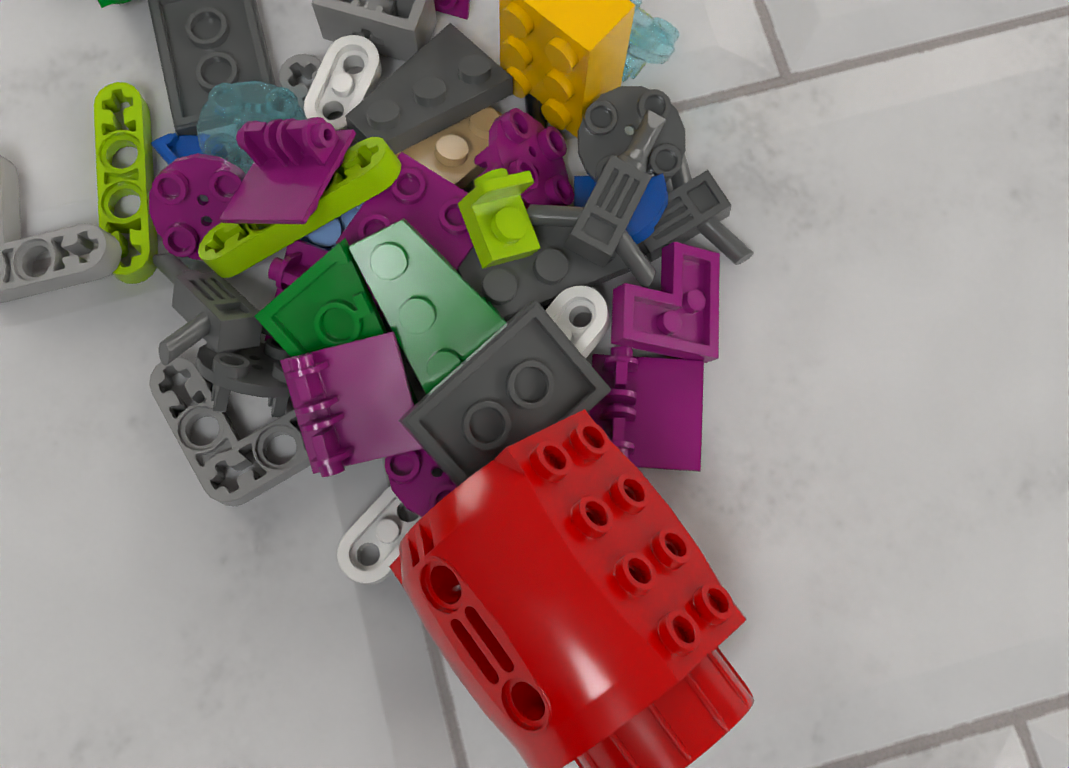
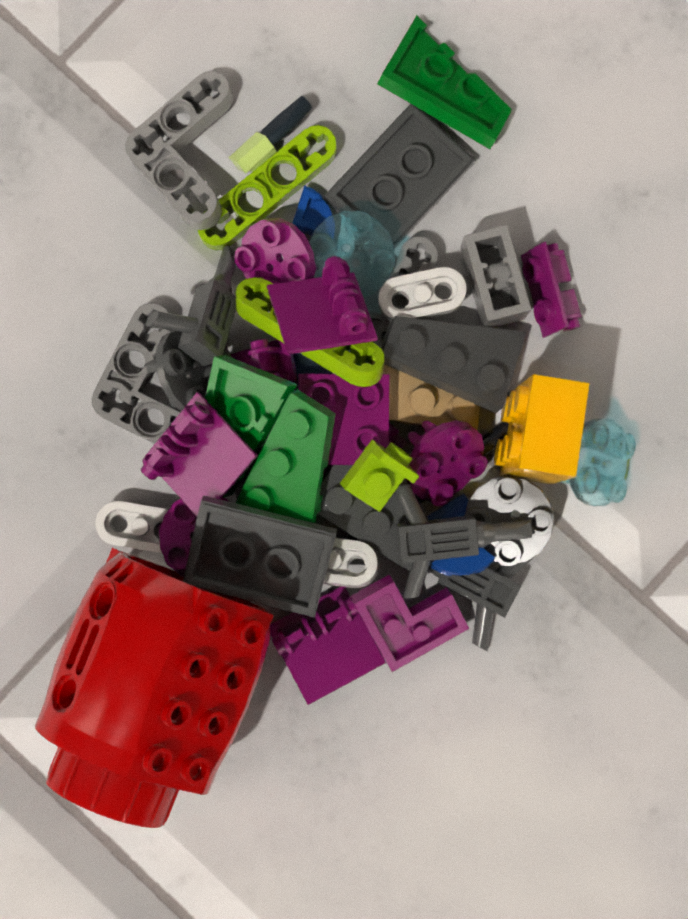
camera: 60 degrees right, 10 degrees up
(78, 158) = (260, 145): none -> piece

